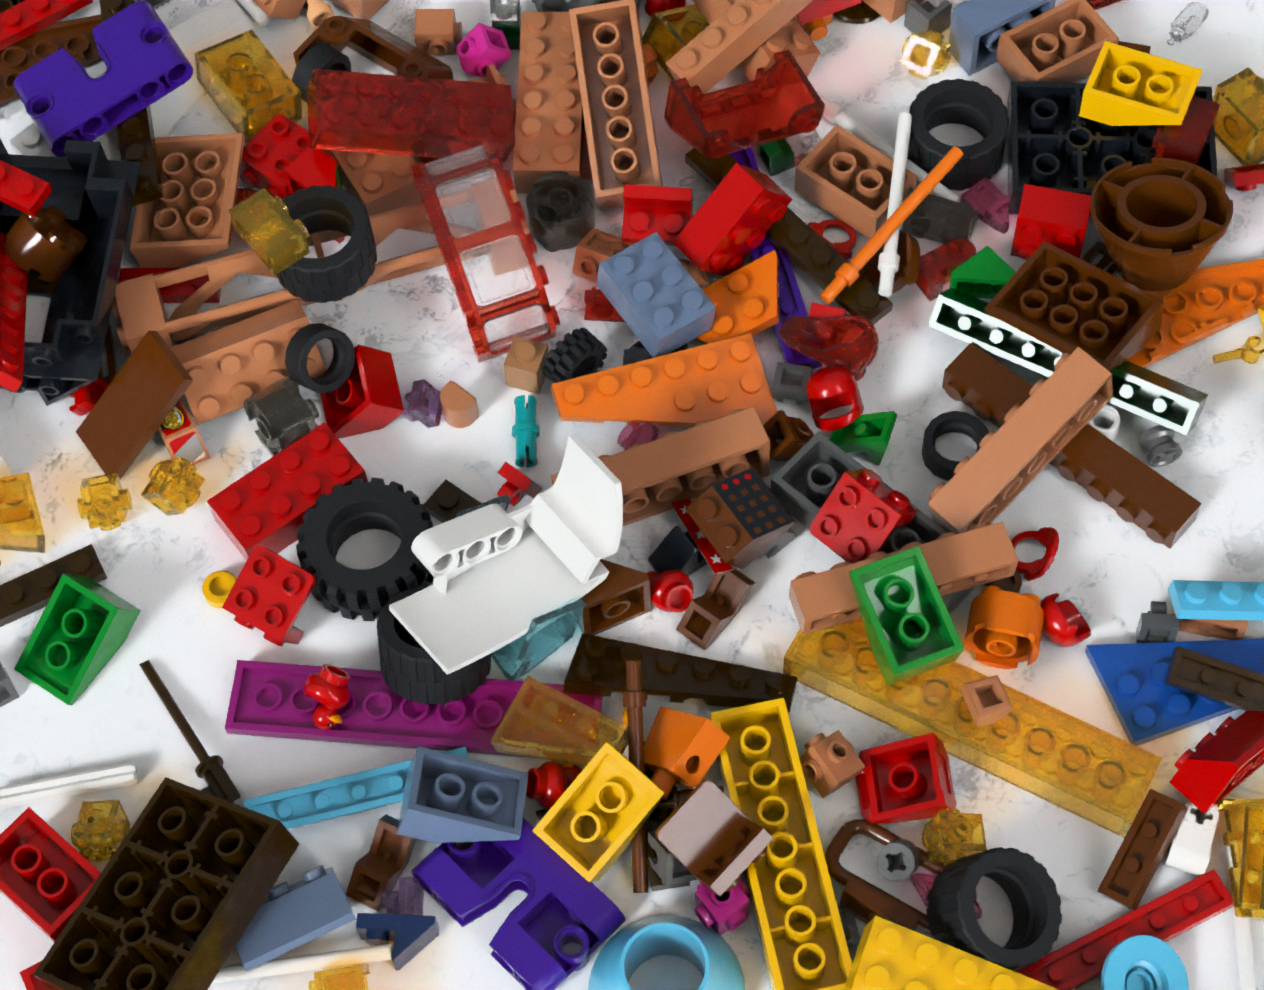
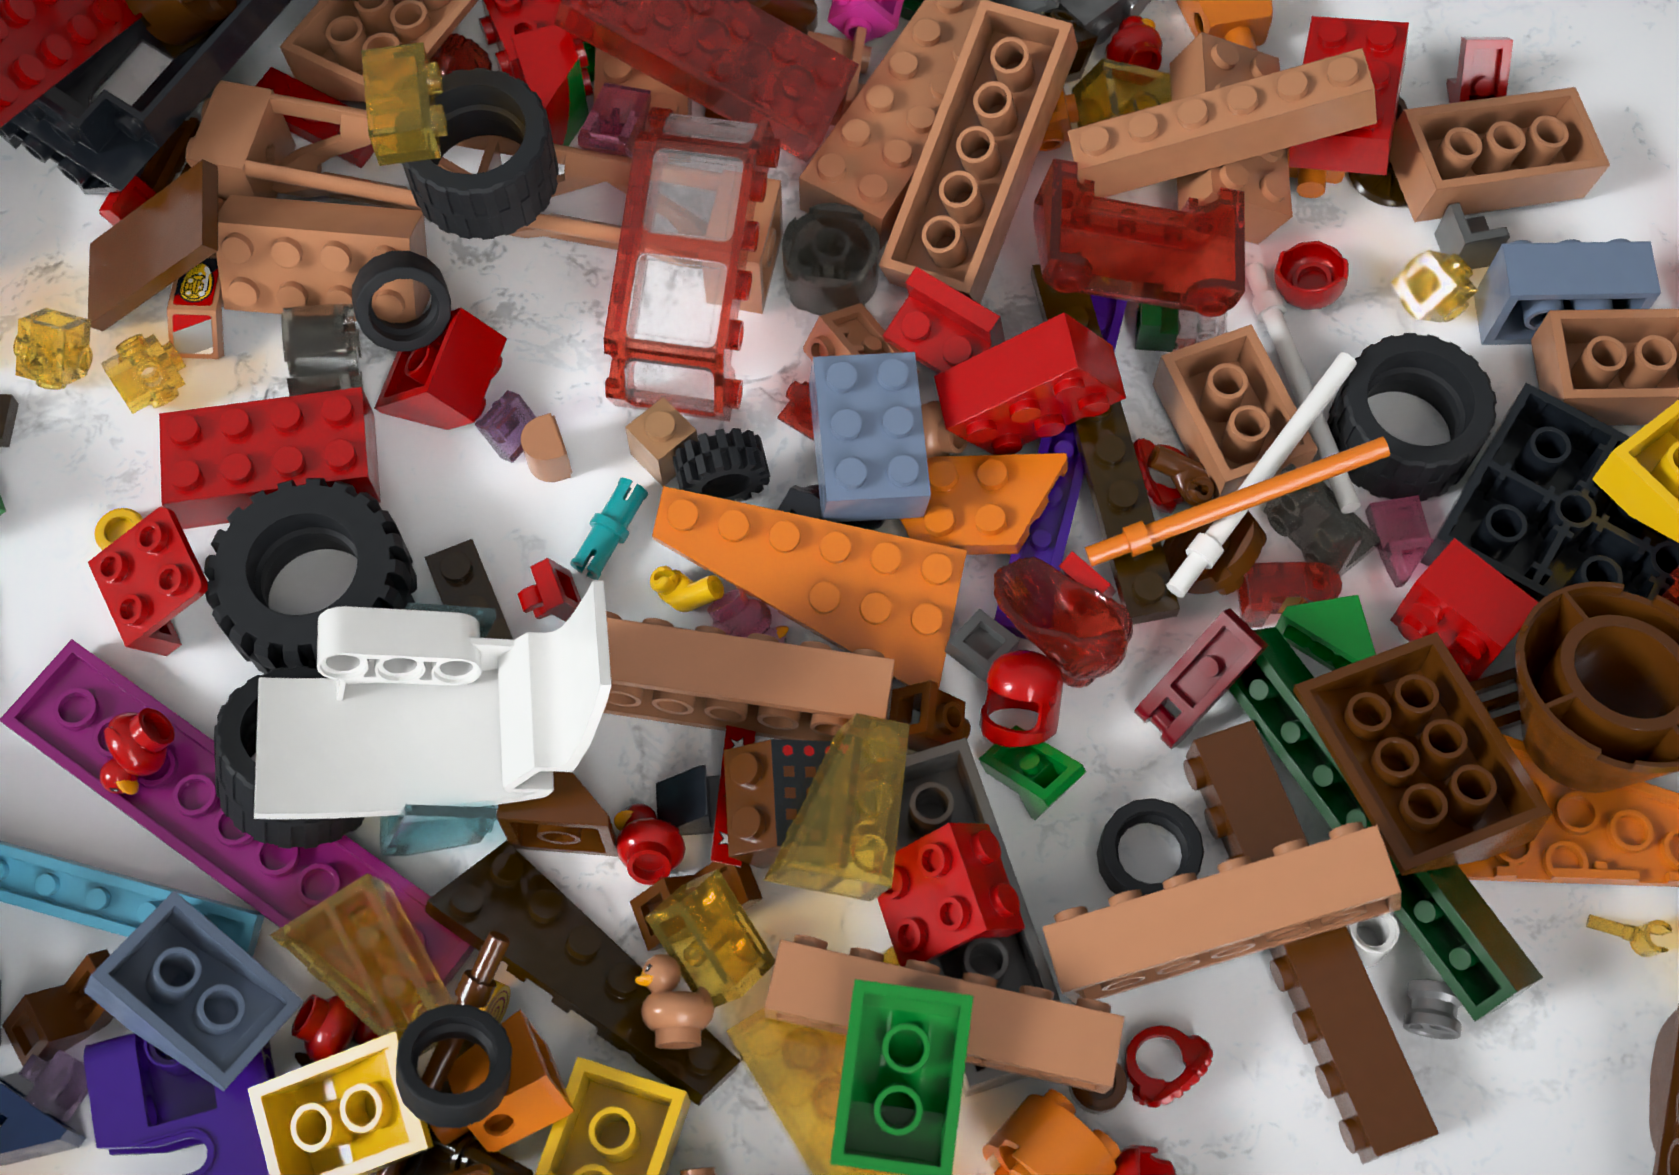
camera: 25 degrees right, 5 degrees up
(383, 188) = (615, 120): none -> clear pink slope
(601, 443) = (683, 592): none -> yellow arm
(654, 760) = (453, 1022): none -> black tyre
(743, 616) = (711, 938): none -> clear yellow brick
(748, 663) = (671, 1014): none -> nougat animal
(784, 499) = (851, 815): none -> clear yellow wedge
(848, 229) = (1187, 475): none -> reddish brown arm
(849, 82) = (1311, 275): none -> red hair
(928, 333) = (1201, 677): none -> dark red plate

